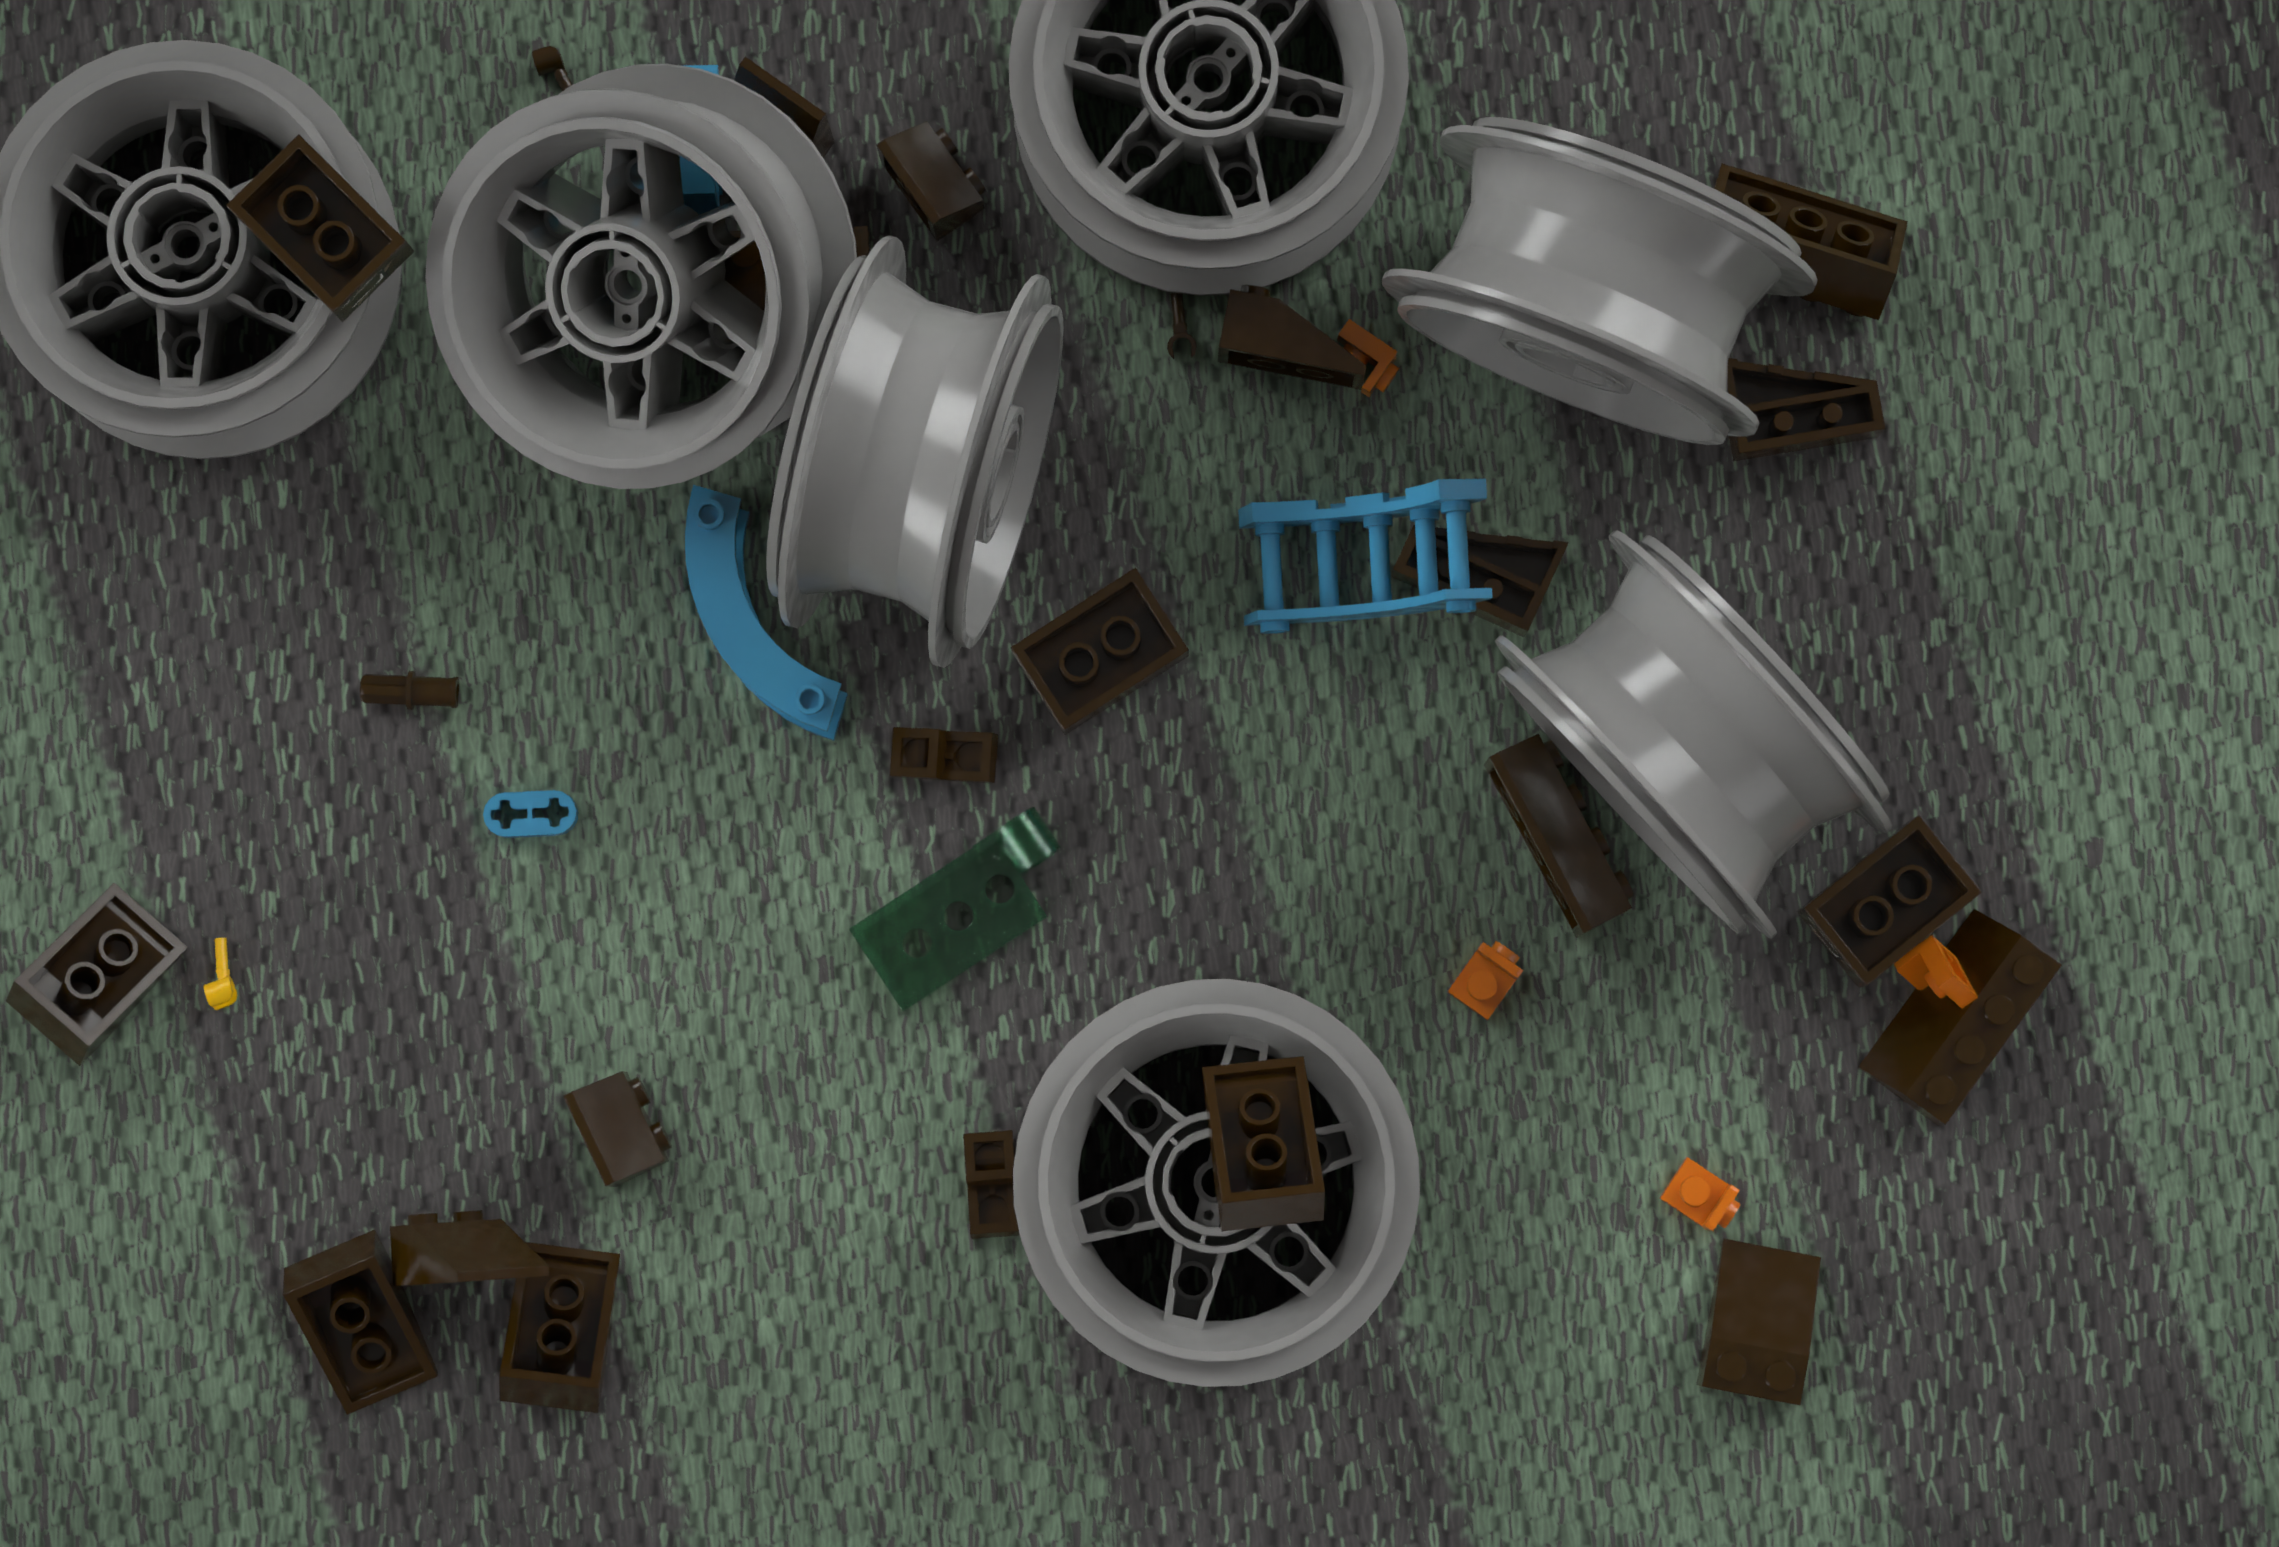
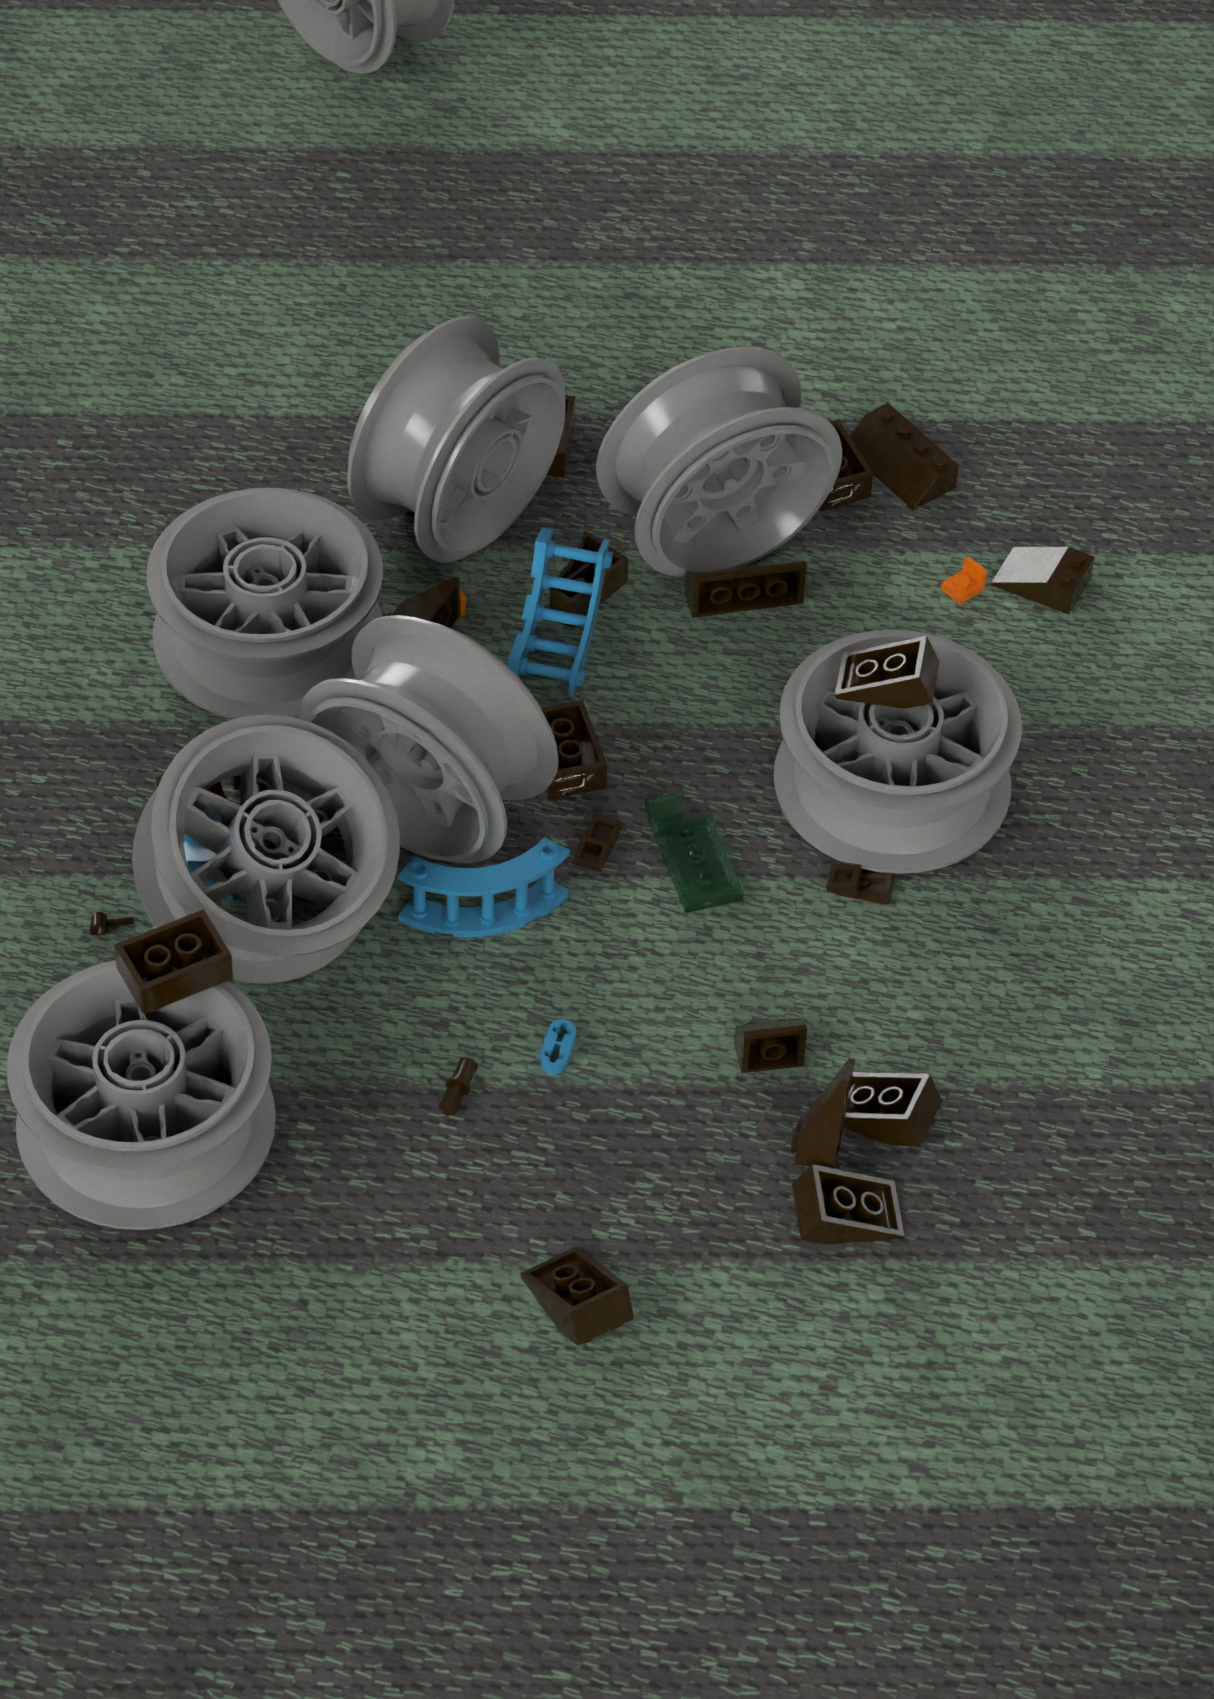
camera: 80 degrees left, 35 degrees down
(222, 991) = (610, 1231): yellow hand -> none
(1486, 978) = (809, 636): orange bracket -> none
(1939, 968) = (876, 448): orange bracket -> none

